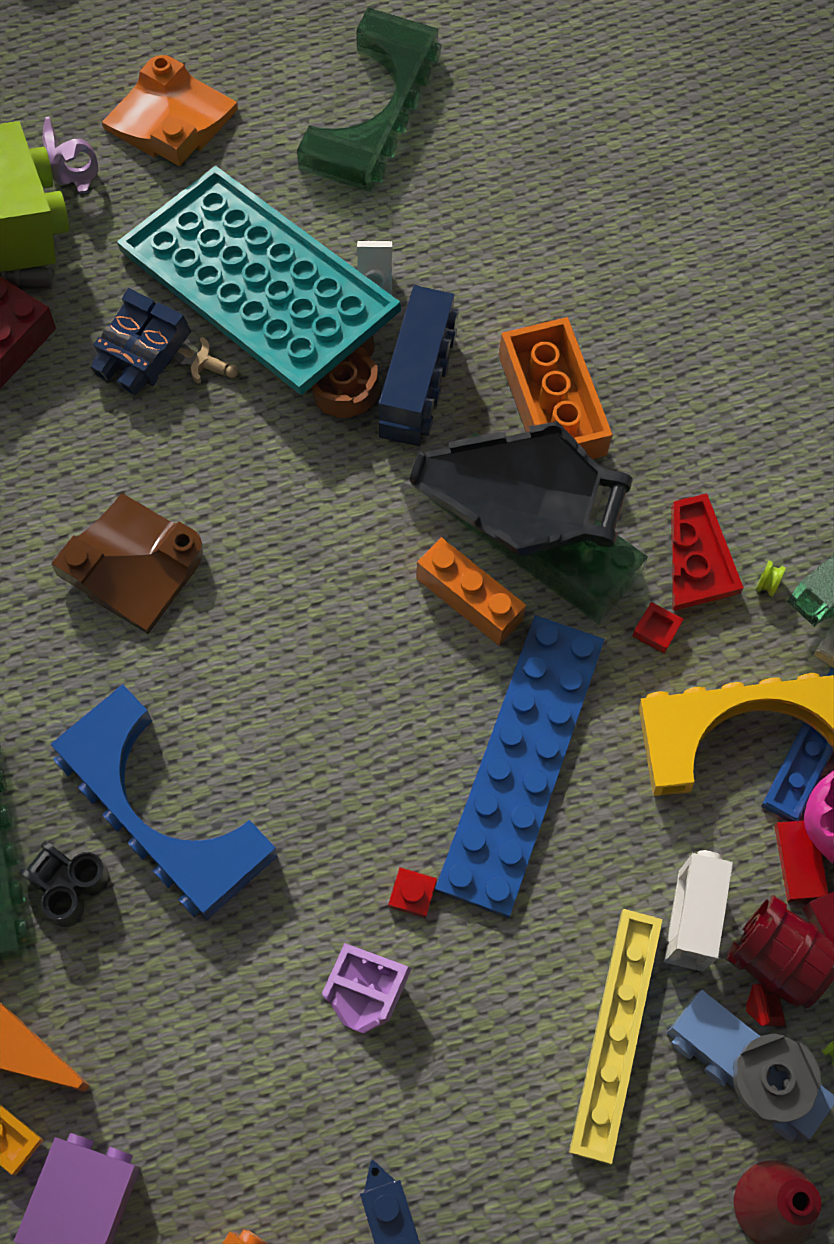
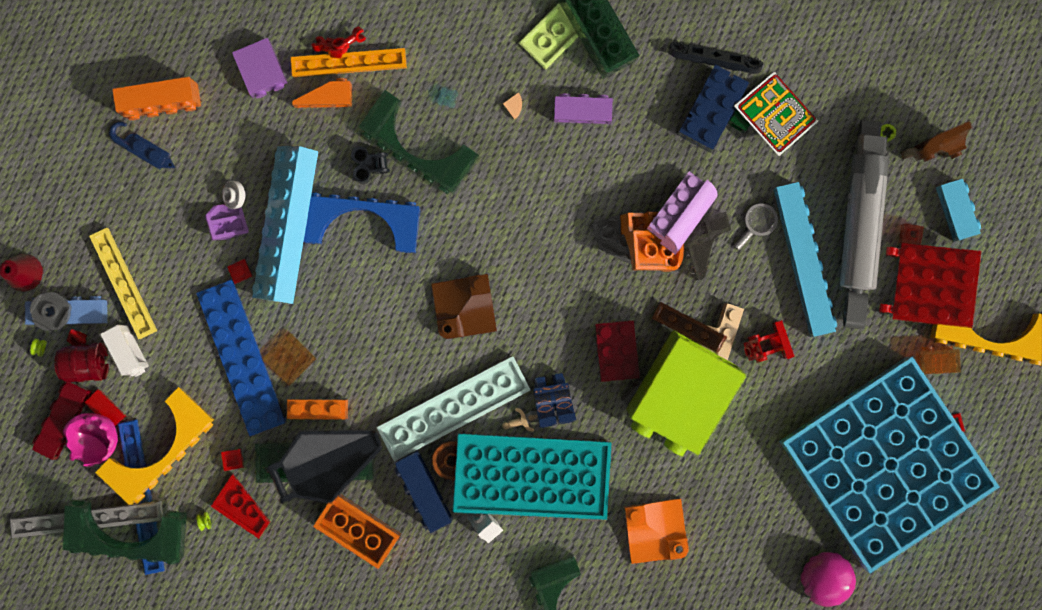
camera: 145 degrees right, 20 degrees up
(67, 152) = (667, 463): lavender hair -> none
(270, 893) = (285, 224): none -> medium azure brick
(278, 444) = (453, 408): none -> light aqua plate
(313, 1019) = (233, 194): none -> white plate
(450, 700) = (289, 358): none -> clear orange tile

